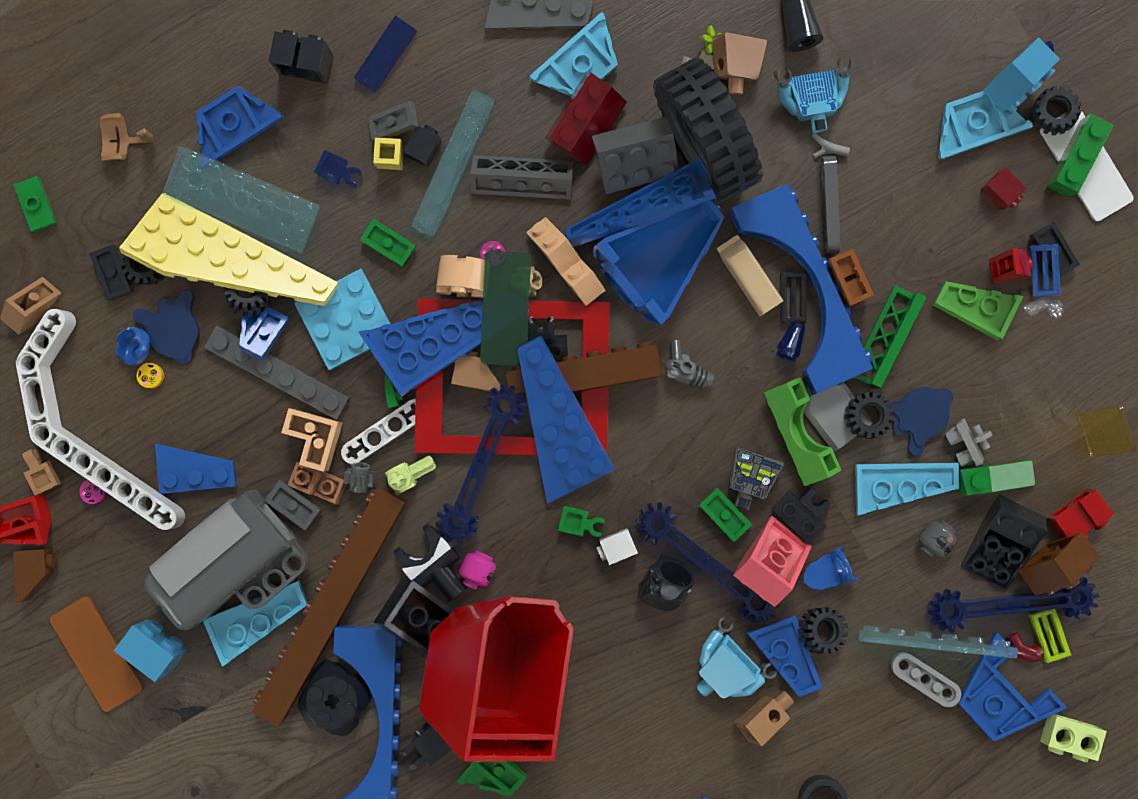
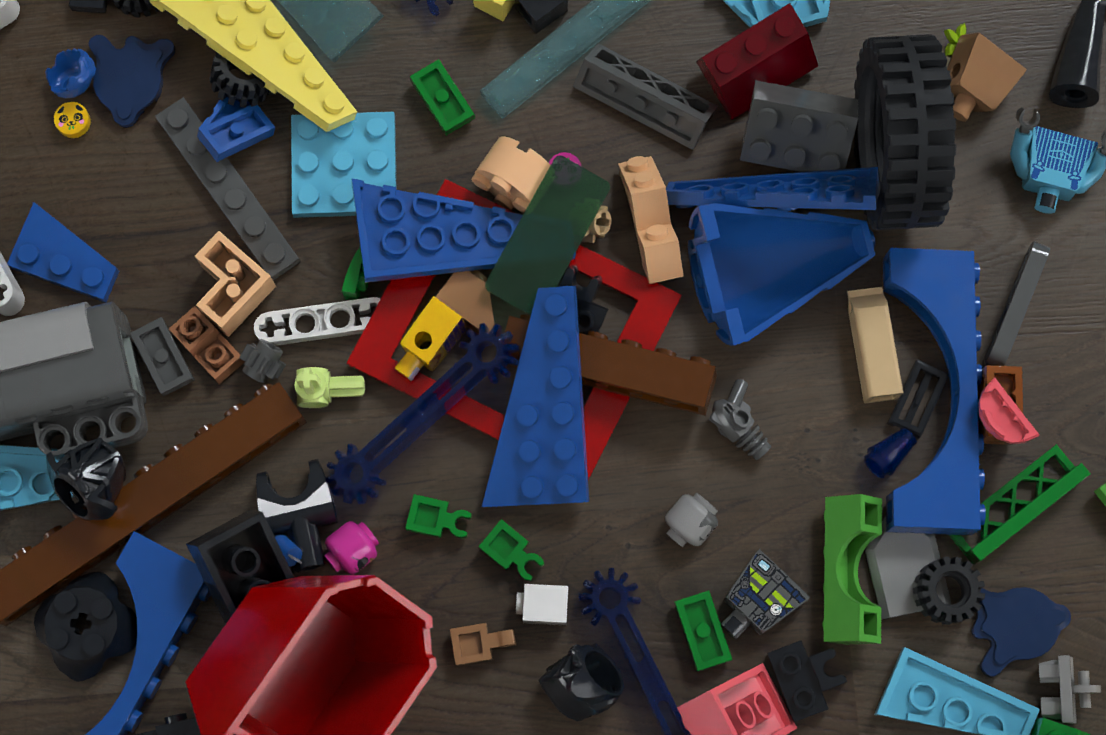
camera: 20 degrees right, 10 degrees down
(292, 608) = (92, 474): none -> black piece
(439, 592) = (290, 550): none -> blue piece
(464, 401) = (435, 325): none -> yellow torso
(518, 525) = (431, 515): none -> green plate
(586, 592) = (474, 643): none -> medium nougat plate
(685, 447) = (691, 520): none -> light grey head
(830, 148) = (1048, 237): light grey bar -> none
(855, 289) = (1003, 417): none -> coral plate

